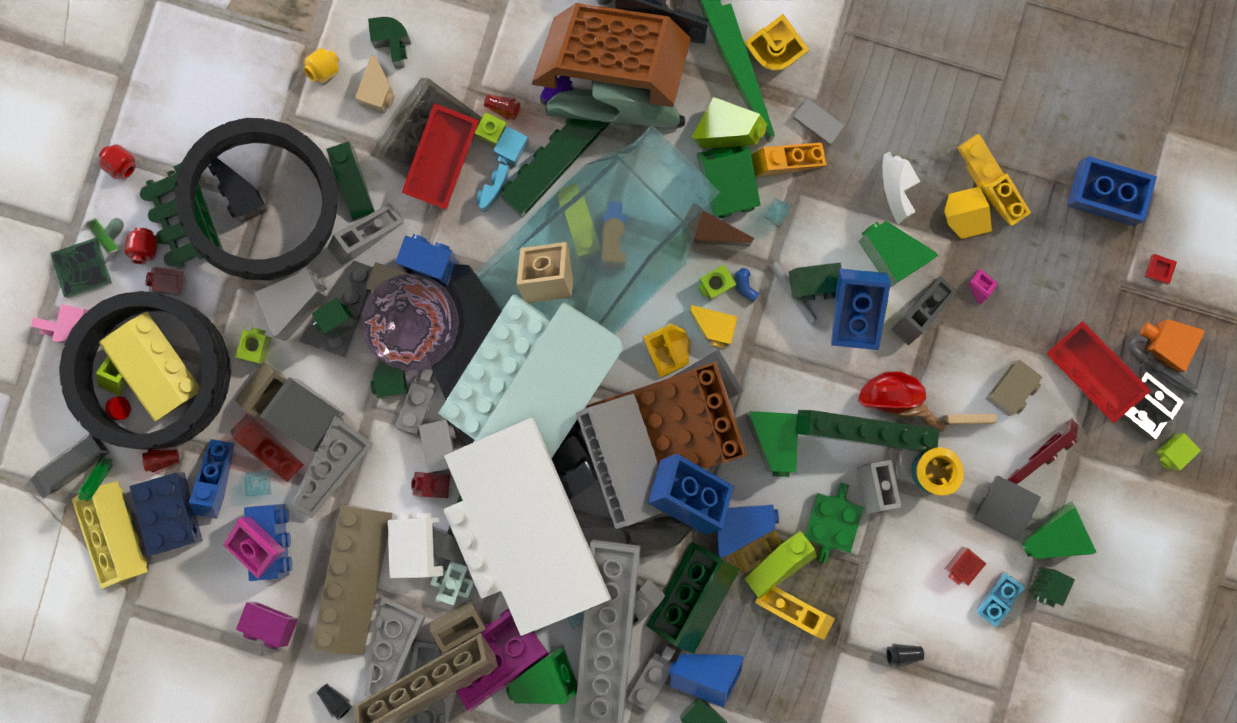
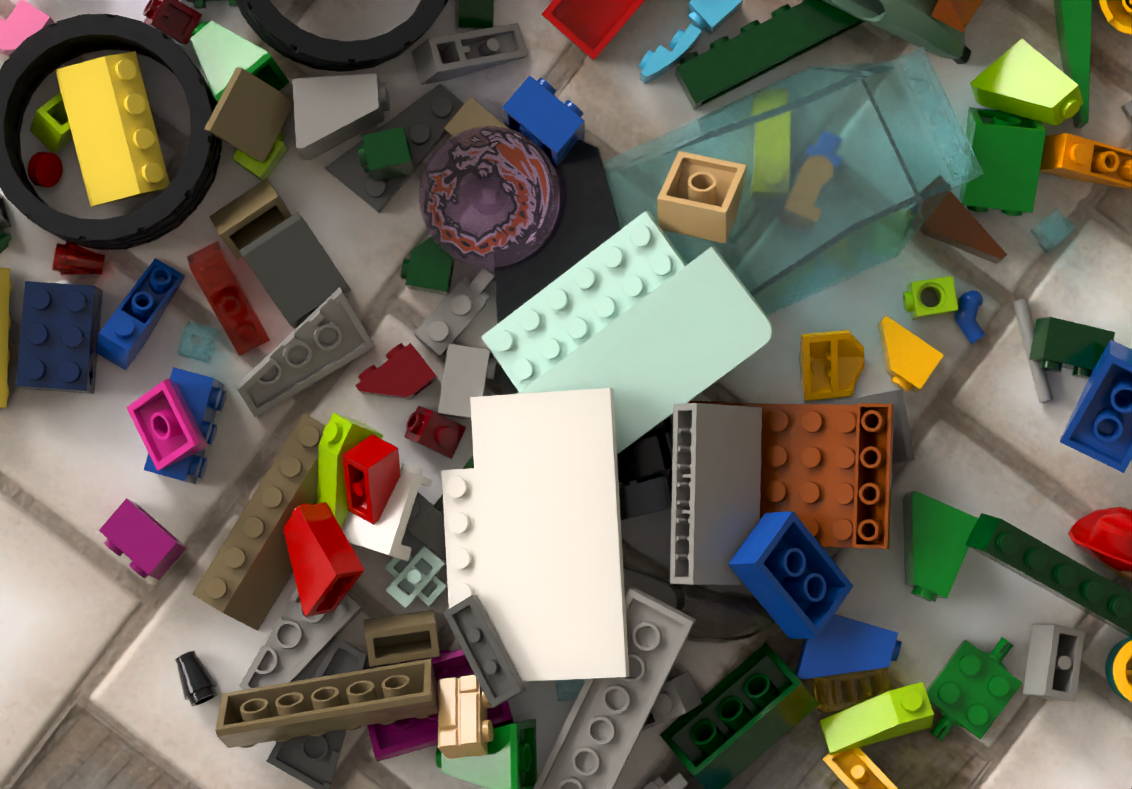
camera: 25 degrees right, 0 degrees up
(218, 300) = (223, 51): none -> slope
(235, 325) = (249, 114): none -> dark tan tile
(378, 527) = (338, 438): none -> lime slope
(385, 595) = (320, 558): none -> red slope
(396, 457) = (400, 377): none -> dark red slope
(398, 530) = (370, 477): none -> red slope
(512, 616) = (484, 651): none -> dark grey plate
(514, 663) = (463, 718): none -> tan brick

